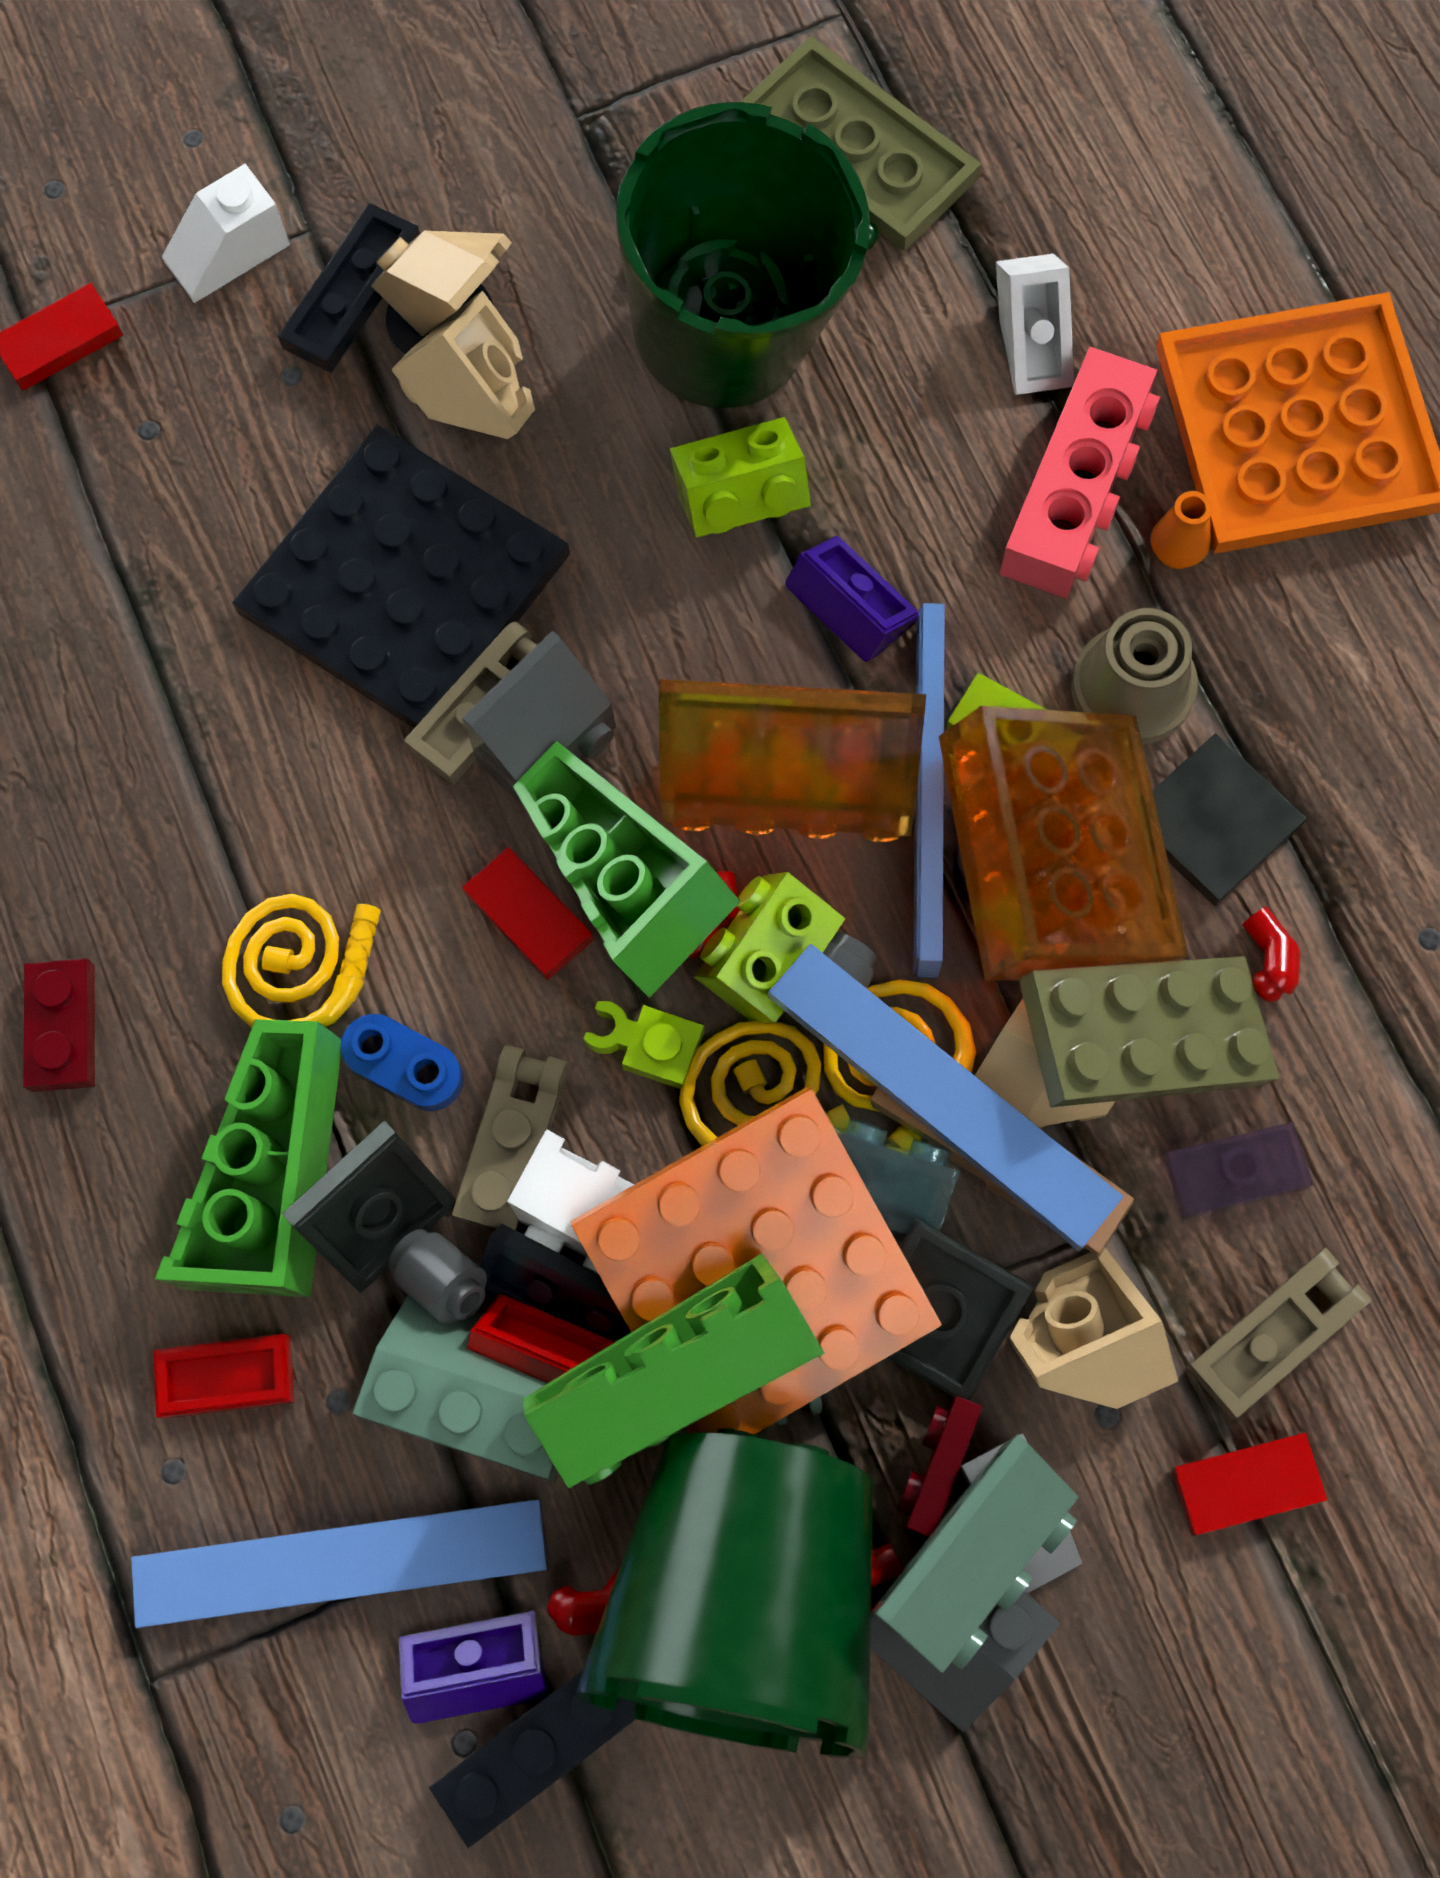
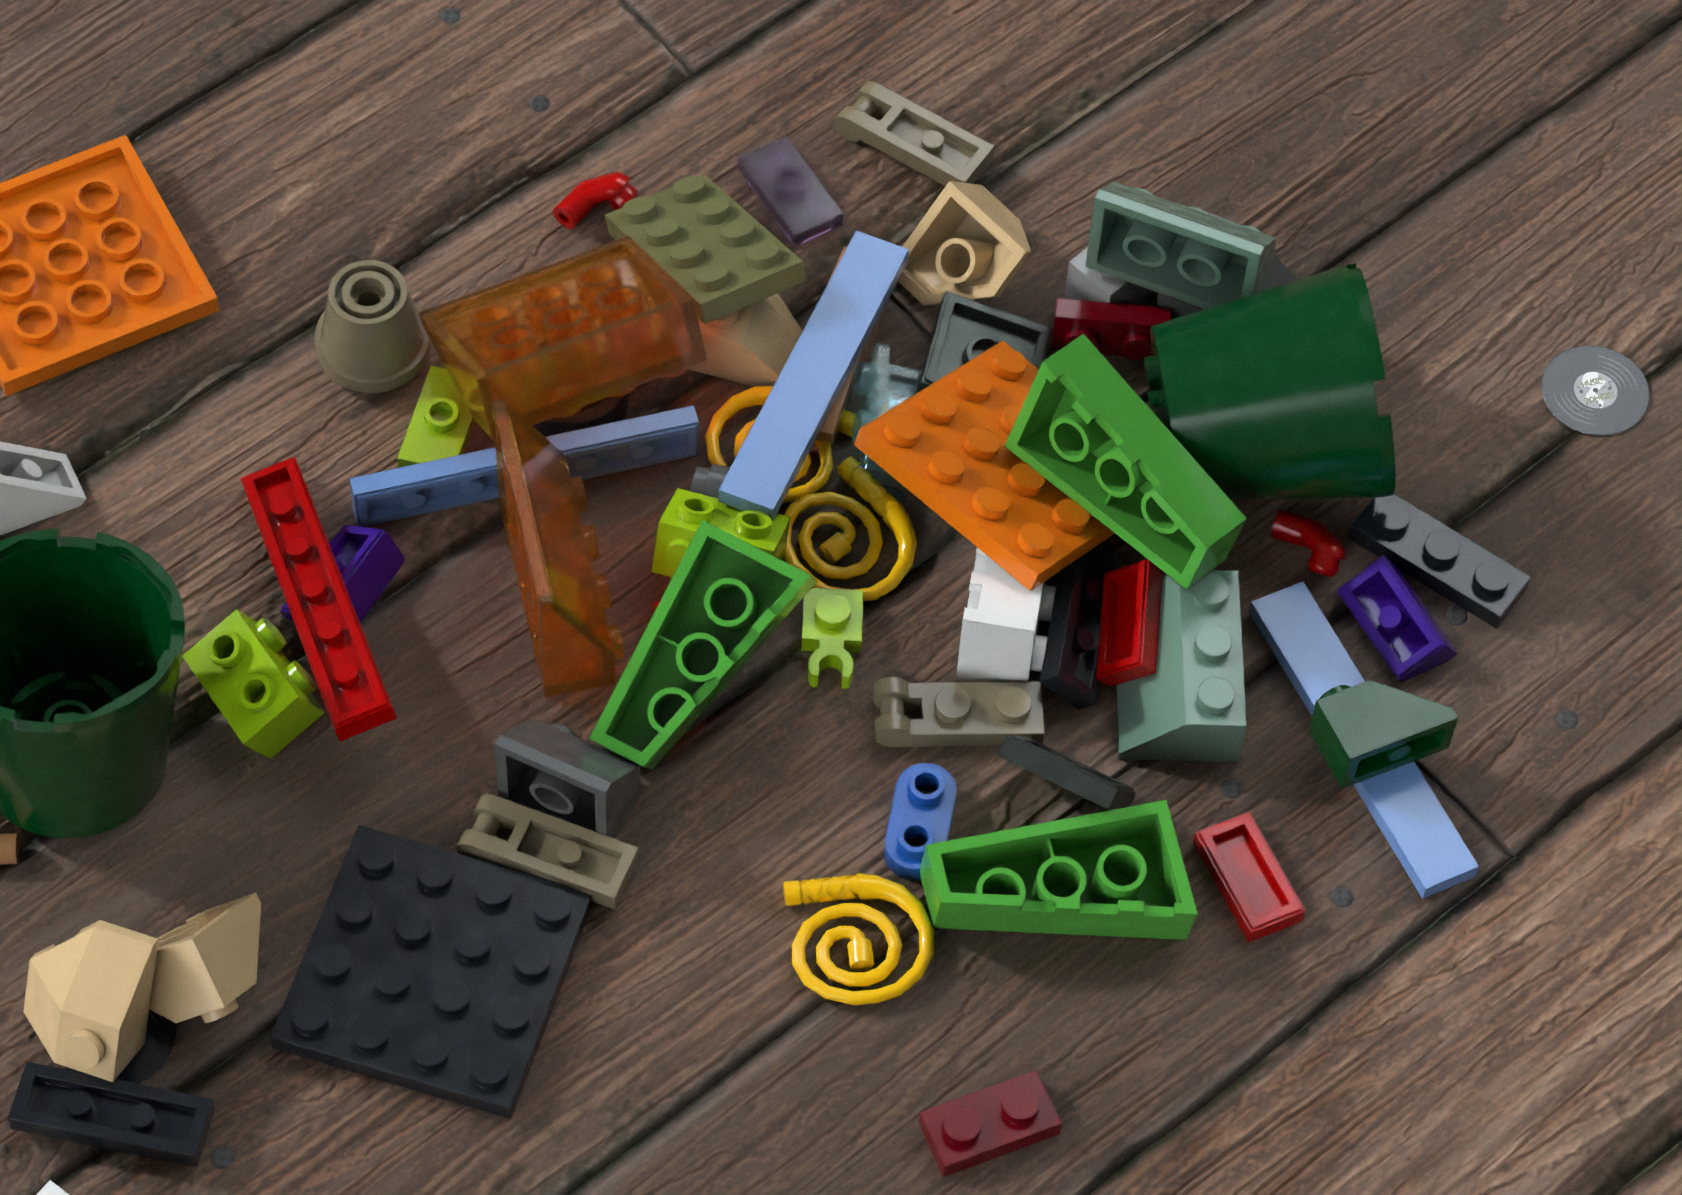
camera: 115 degrees left, 15 degrees down
(311, 1565) = (1377, 729): none -> slope
(438, 1276) = (1102, 719): dark grey brick -> none
(527, 913) = (745, 760): red tile -> none
(817, 550) = (318, 600): none -> red tile
(1105, 391) = (140, 433): coral brick -> none
(1184, 532) = (211, 327): orange cone -> none
(1221, 819) = (477, 250): pearl dark grey tile -> none
(1248, 1484) = (1038, 140): red tile -> none

